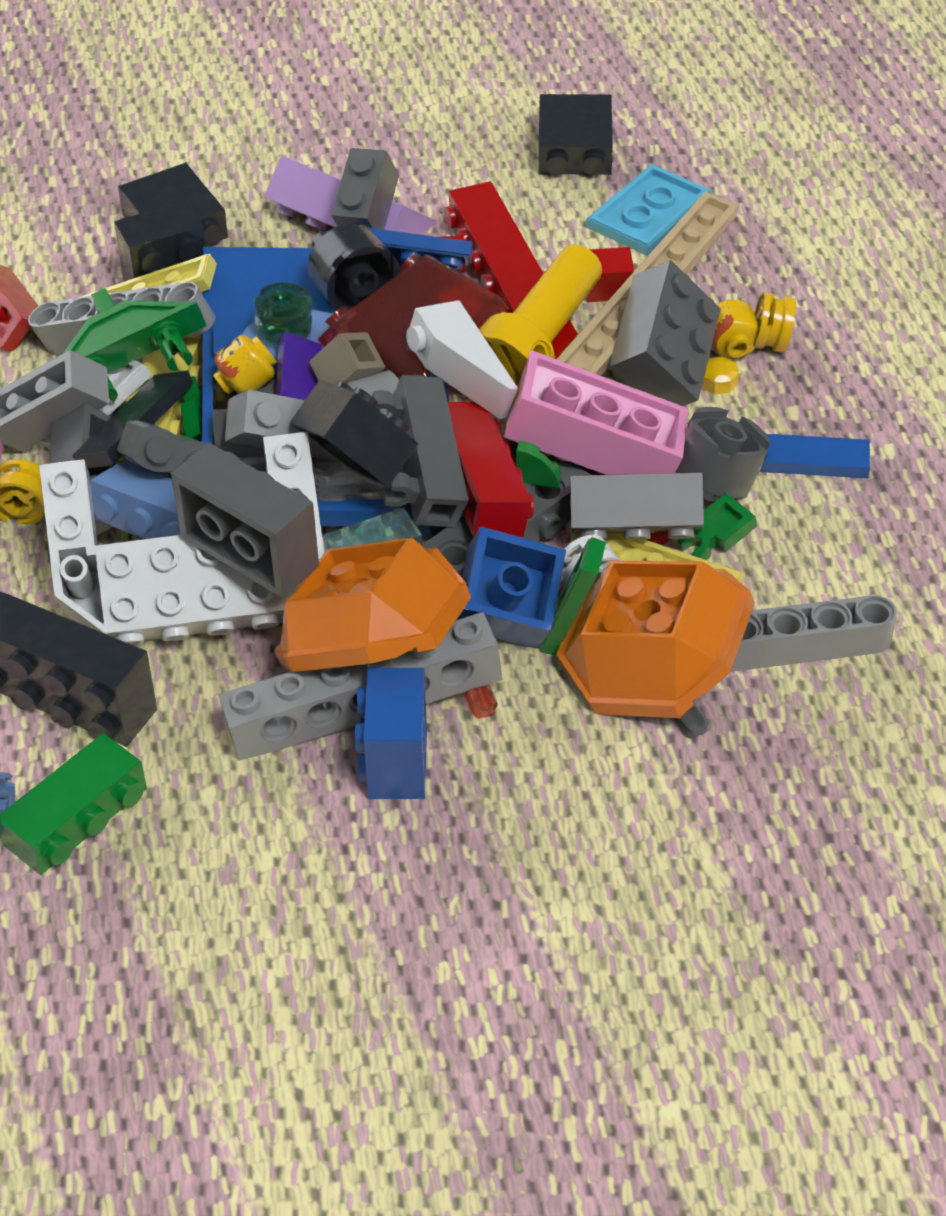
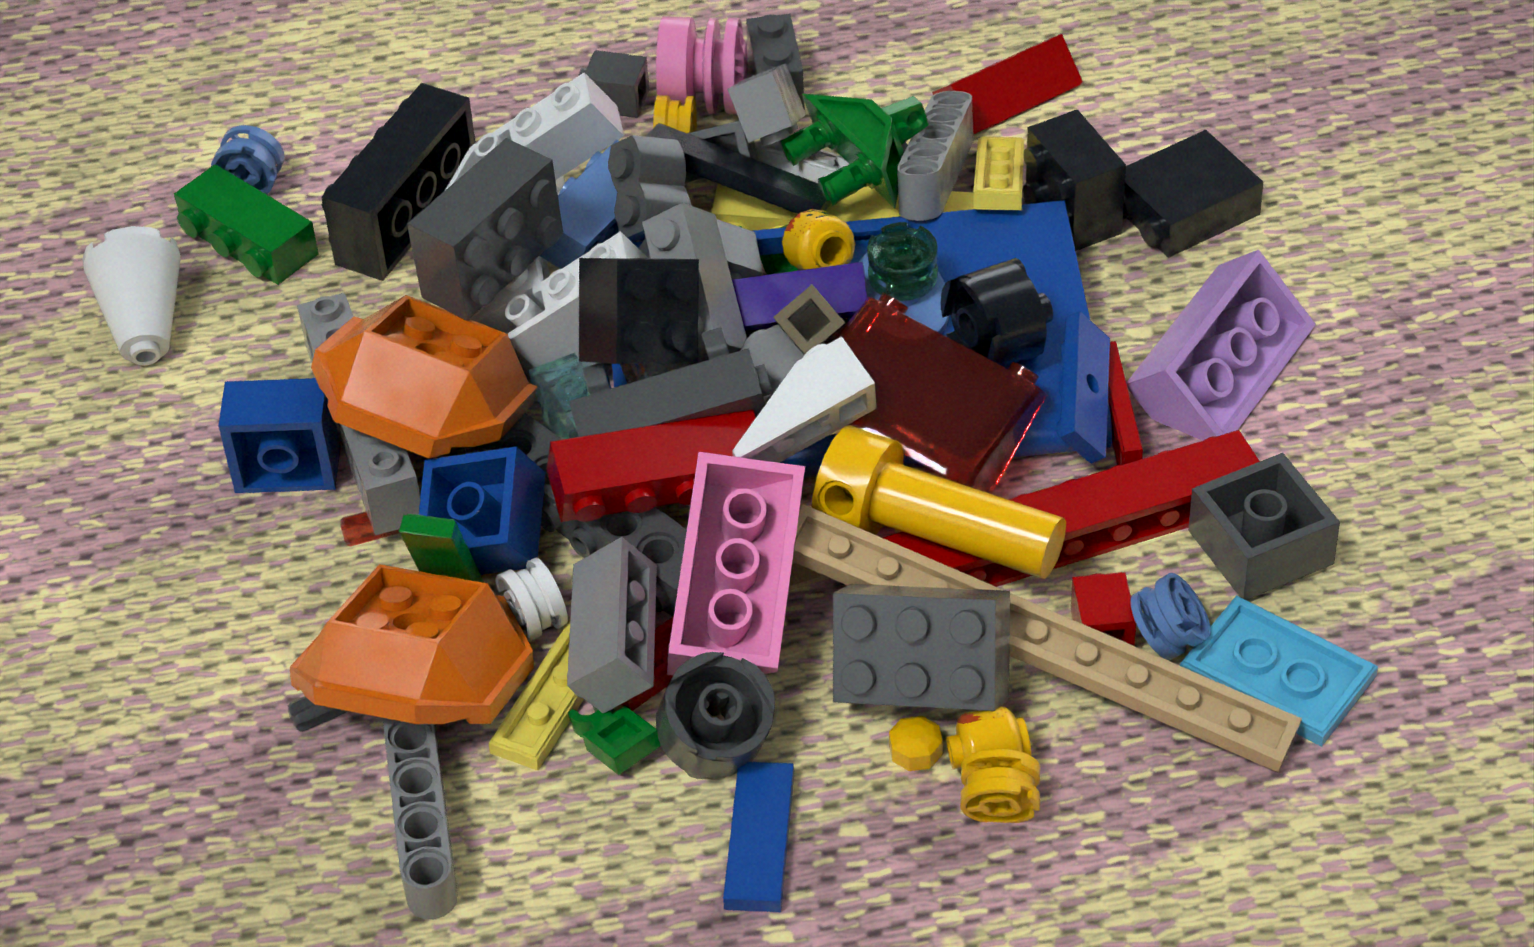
camera: 90 degrees right, 0 degrees up
(174, 873) = (136, 289): none -> white cone
(366, 189) = (1157, 321): dark grey brick -> none
(536, 467) = (669, 521): green tile -> none
(540, 189) = (1263, 526): none -> dark grey brick
(575, 134) = (1422, 573): black brick -> none
(620, 232) = (1170, 616): none -> medium blue wheel

